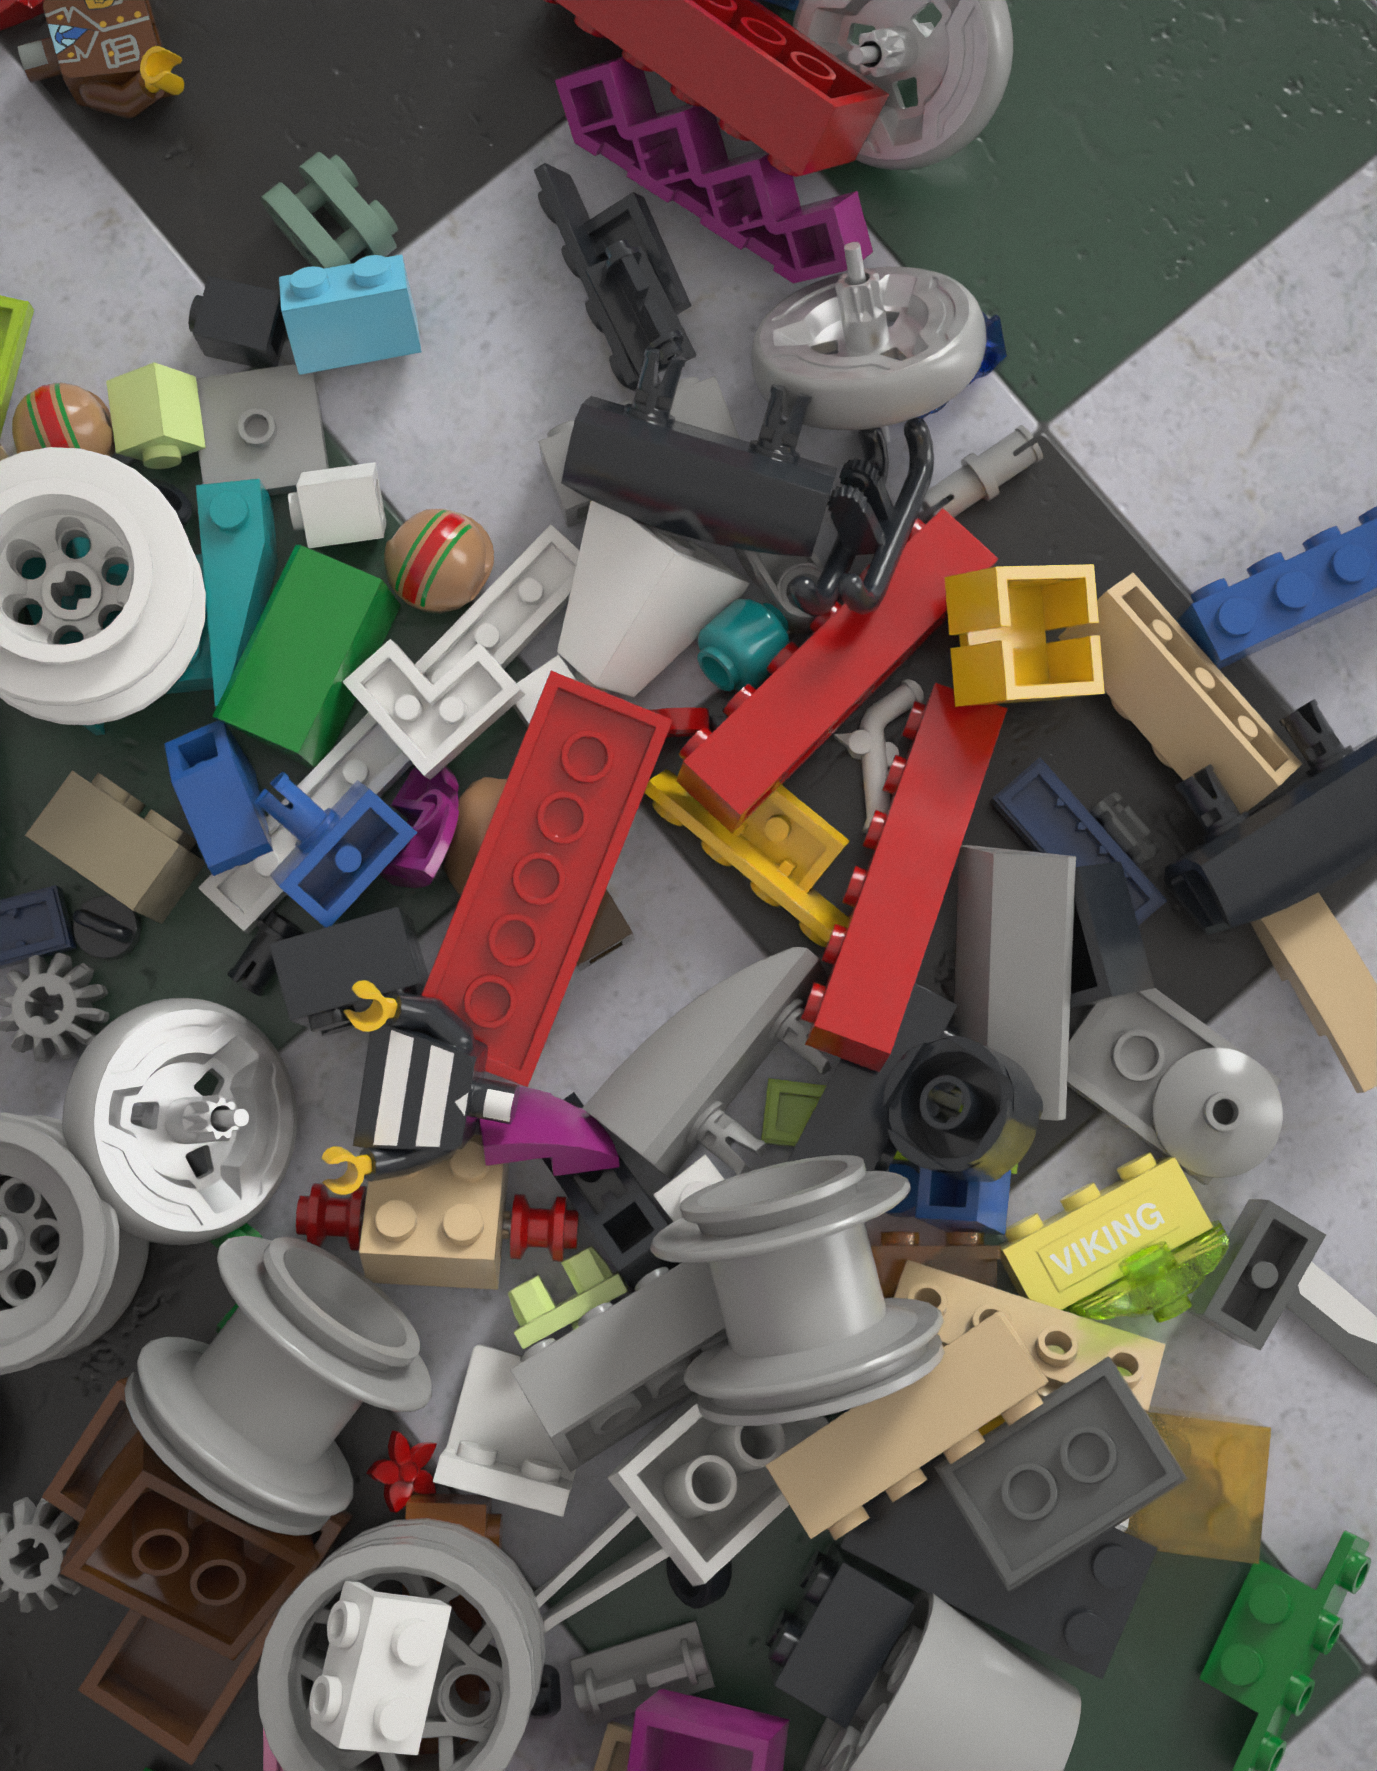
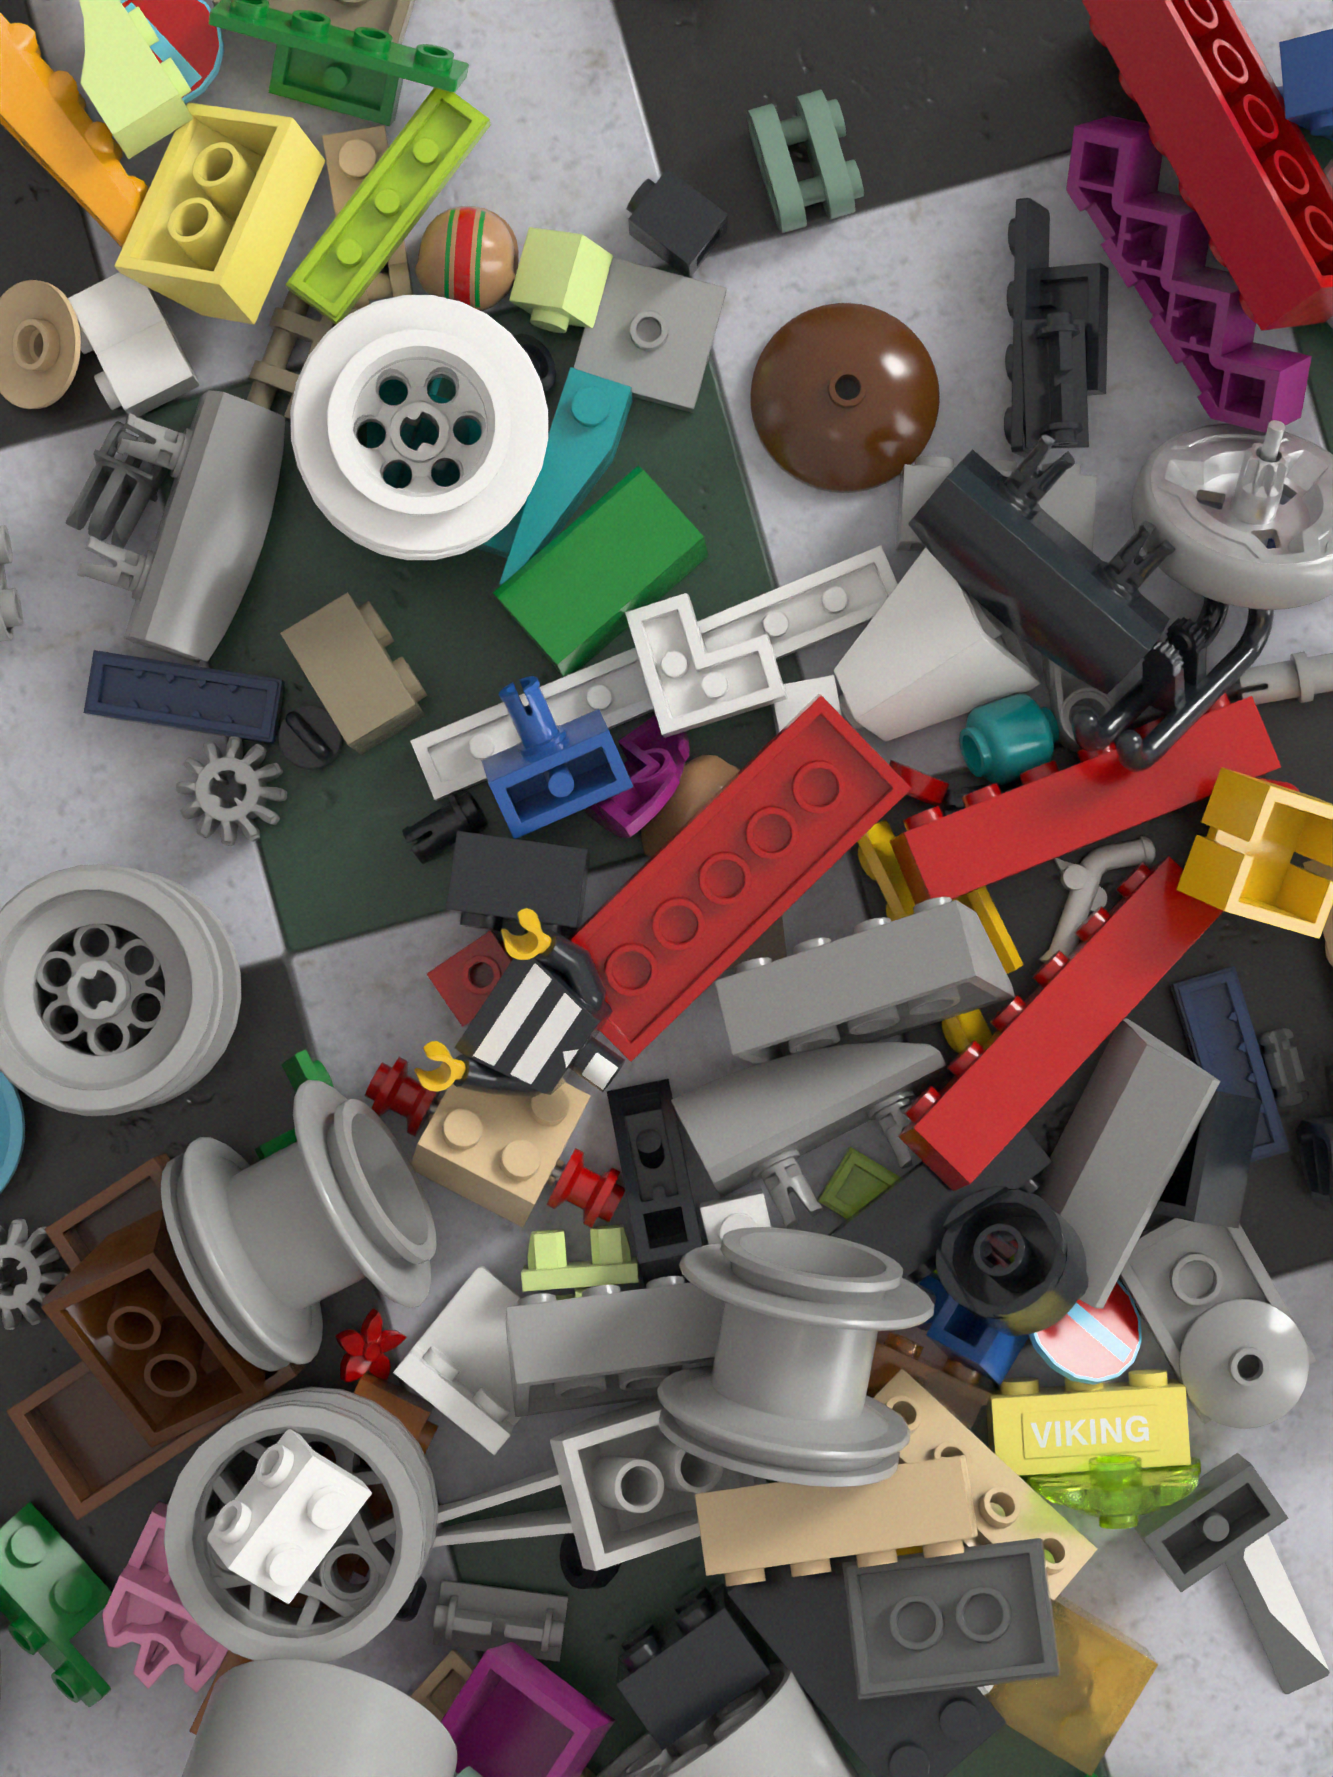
camera: 30 degrees right, 5 degrees up
(140, 1159) = (276, 932): flat silver wheel -> none
(218, 796) = (466, 668): blue slope -> none
(338, 505) = (692, 440): white brick -> none
(341, 1075) = (471, 976): none -> red brick
(349, 313) = (782, 262): medium azure brick -> none
(438, 560) = (763, 533): medium nougat helmet -> none
(468, 450) = (836, 440): none -> reddish brown dish
(552, 1129) = (631, 1107): magenta brick -> none
(710, 917) = (864, 984): none -> light grey slope
(1069, 1154) = (1093, 1342): none -> piece

